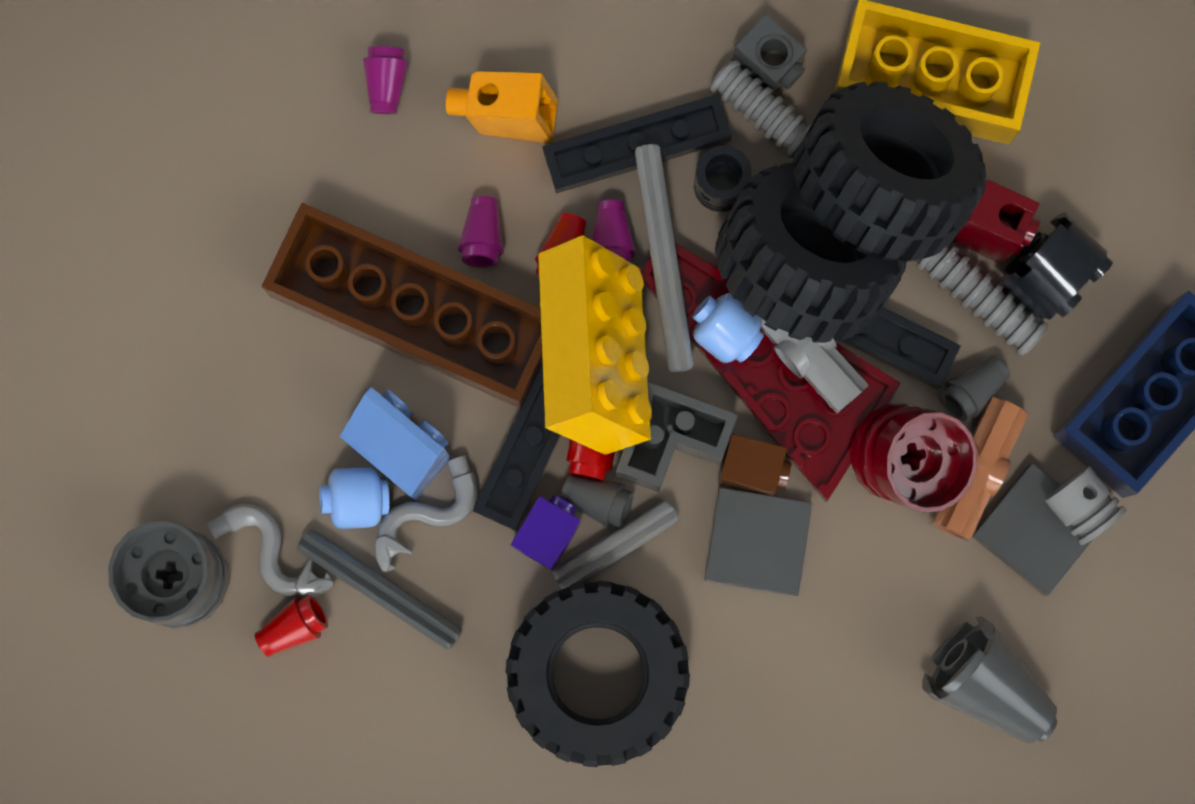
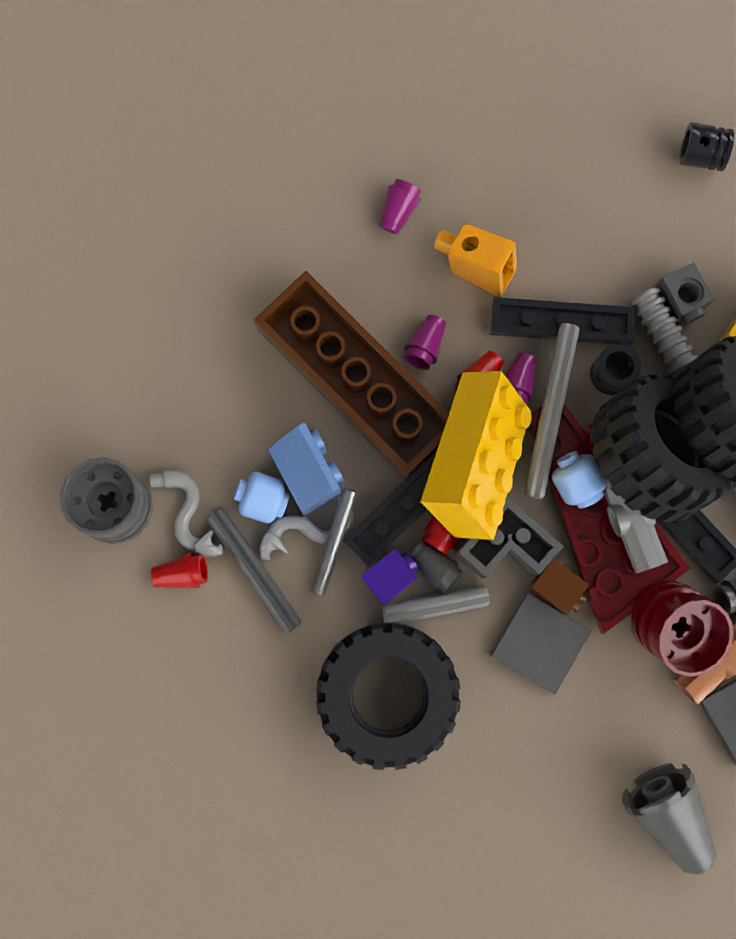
camera: 20 degrees right, 0 degrees up
(463, 516) = (334, 541): none -> flat silver bar

